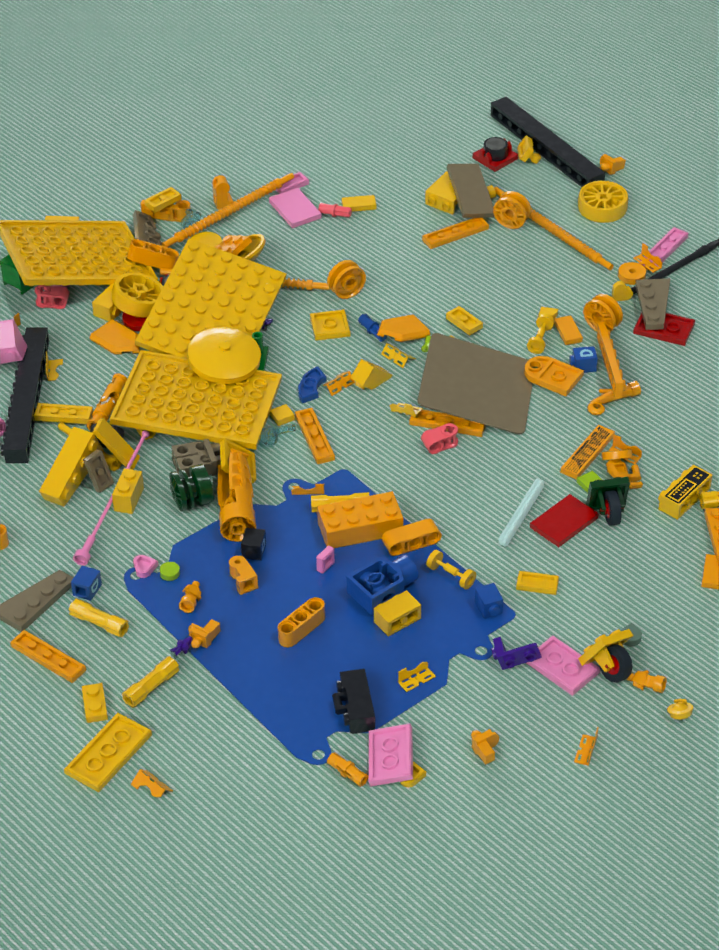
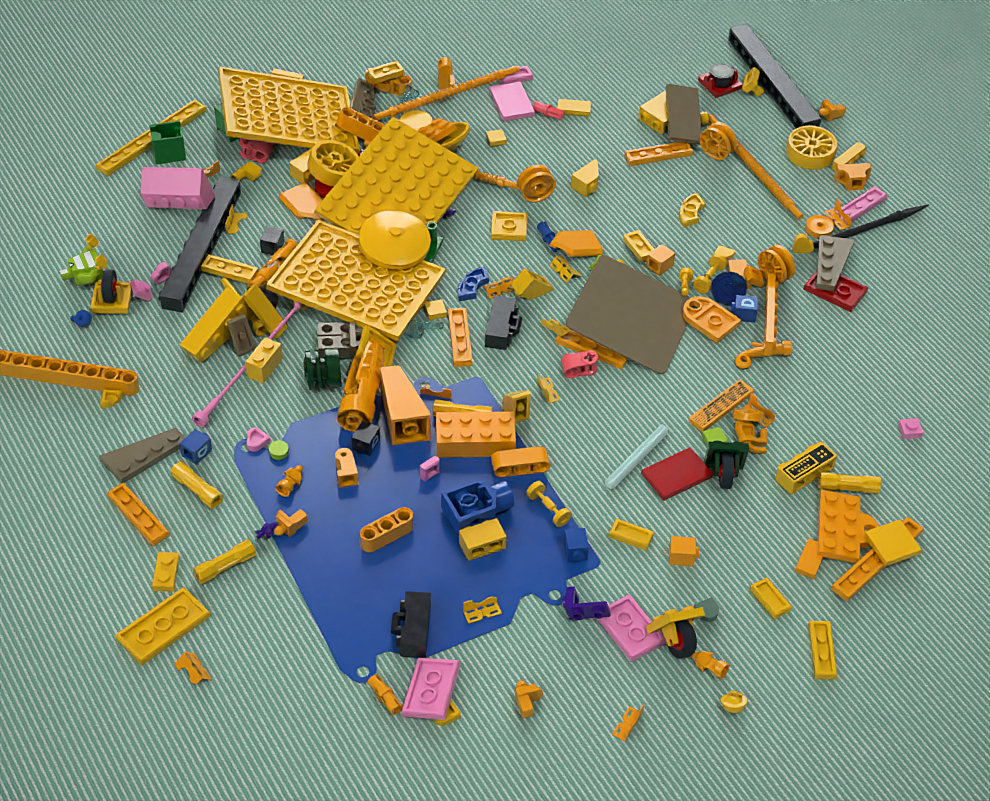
camera: 10 degrees right, 5 degrees up
(51, 318) = (249, 171): none -> yellow piece
(97, 378) = (271, 240): none -> black brick
(283, 508) = (404, 409): none -> light orange slope
(290, 244) = (496, 137): none -> yellow tile
(352, 421) = (498, 330): none -> piece
(393, 267) = (586, 179): none -> yellow slope
(395, 482) = (519, 403): none -> yellow slope
(417, 471) = (547, 389): none -> yellow piece
(489, 329) = (660, 259): none -> light orange brick
(502, 279) = (689, 210): none -> yellow tile
(518, 341) = (686, 276): none -> yellow piece
(561, 342) = (727, 286): none -> clear blue tile
(583, 329) = (754, 276): none -> light orange tile
(592, 587) = (683, 551): none -> light orange brick
(641, 205) = (850, 156): none -> yellow piece
(650, 220) = (853, 175): none -> light orange brick
(686, 613) = (770, 598): none -> yellow tile

